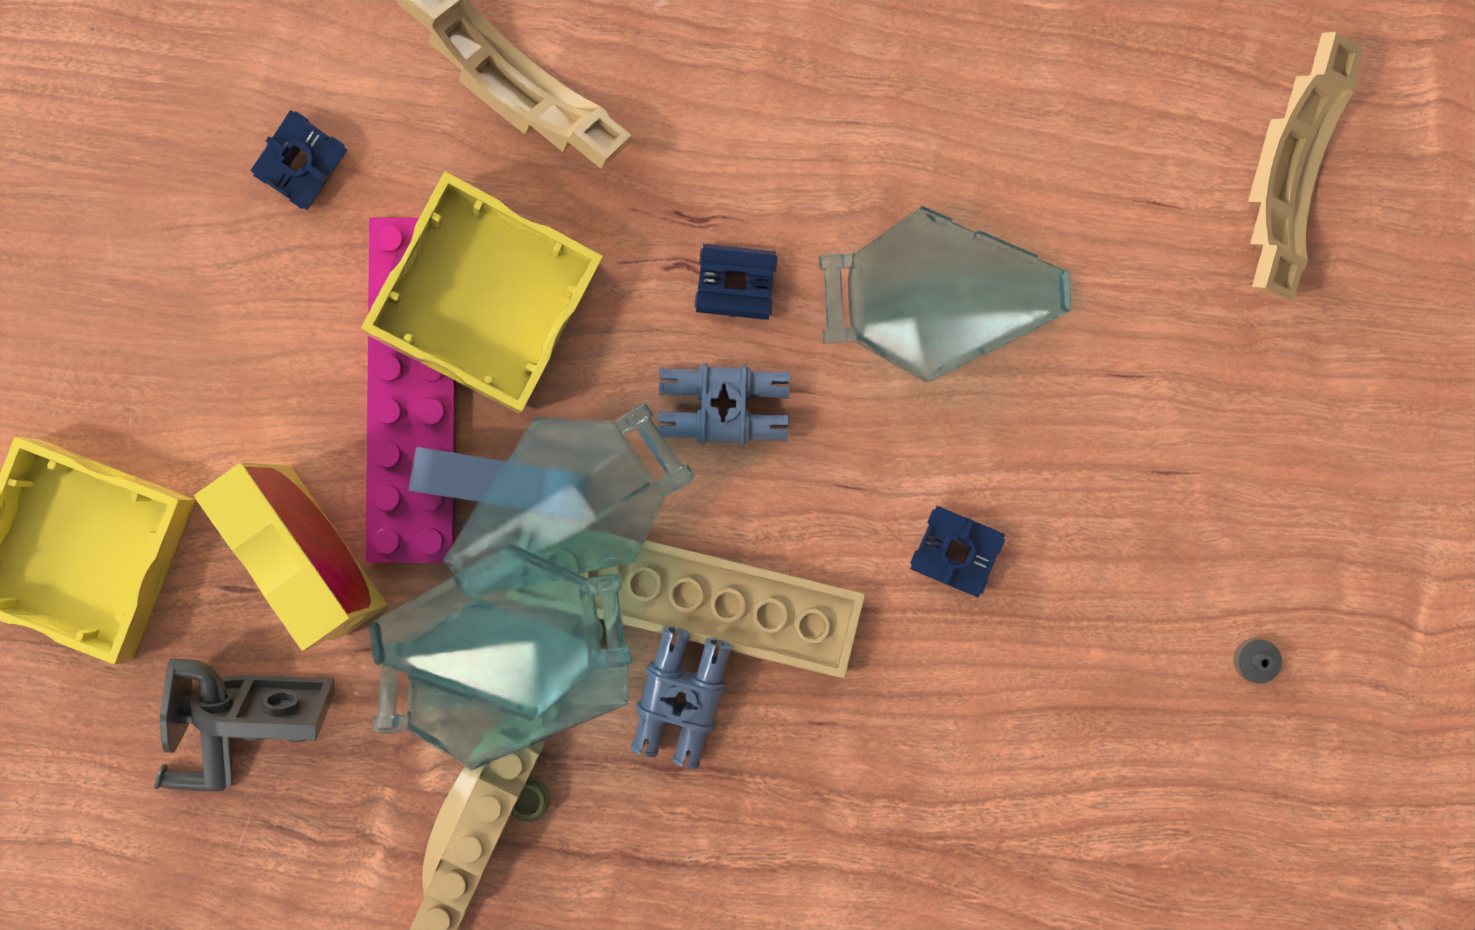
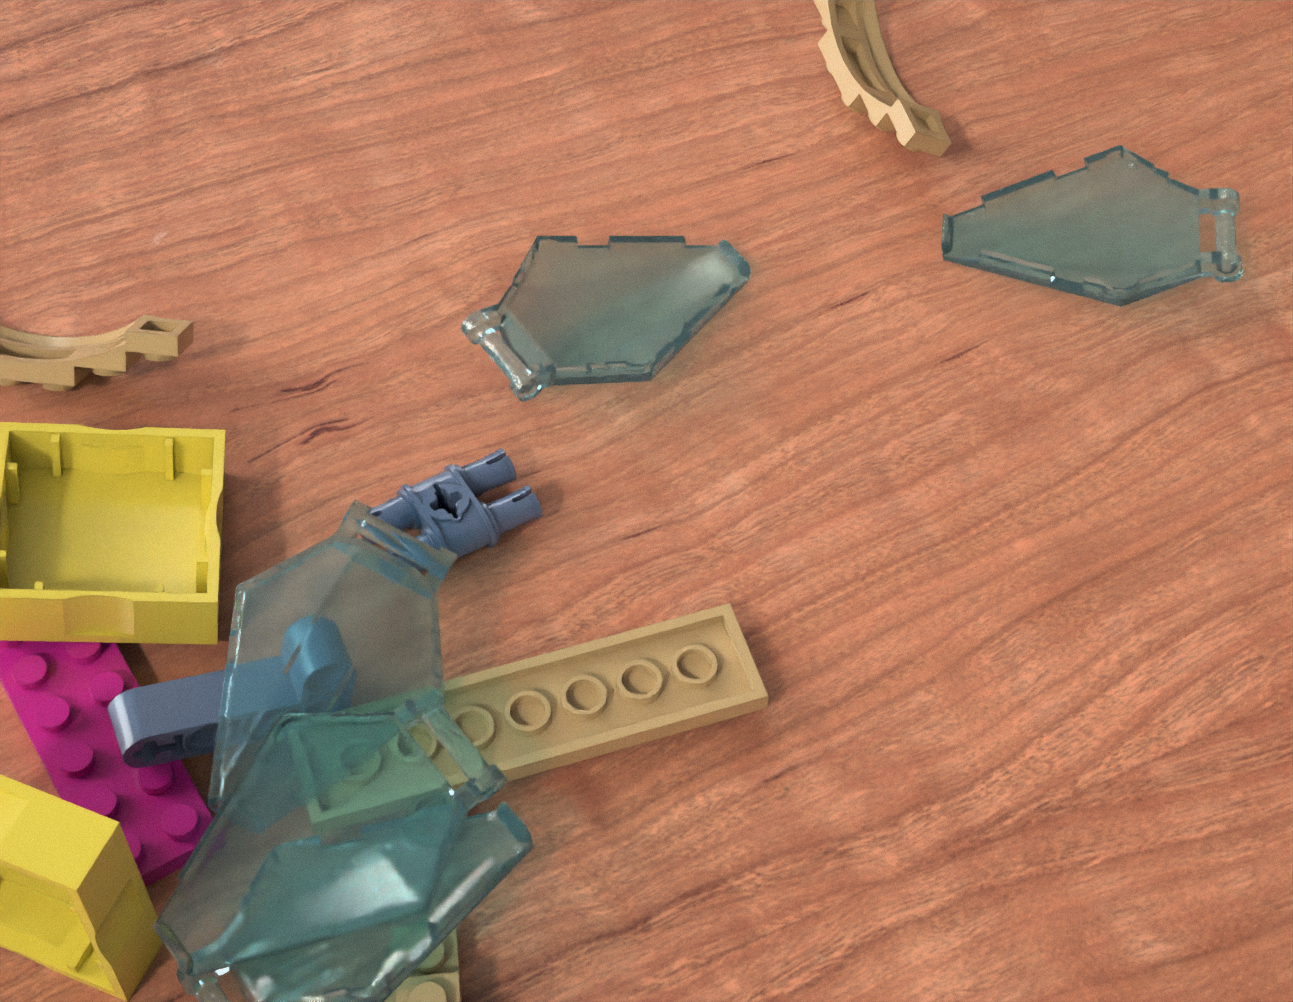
camera: 35 degrees left, 35 degrees down
(660, 695) = (572, 839): sand blue pin -> none
(722, 260) = (410, 413): dark blue piece -> none
(967, 576) = (779, 505): dark blue piece -> none
(1257, 660) = (1185, 458): dark grey tile -> none
(1344, 442) = (1099, 231): none -> clear light blue windscreen

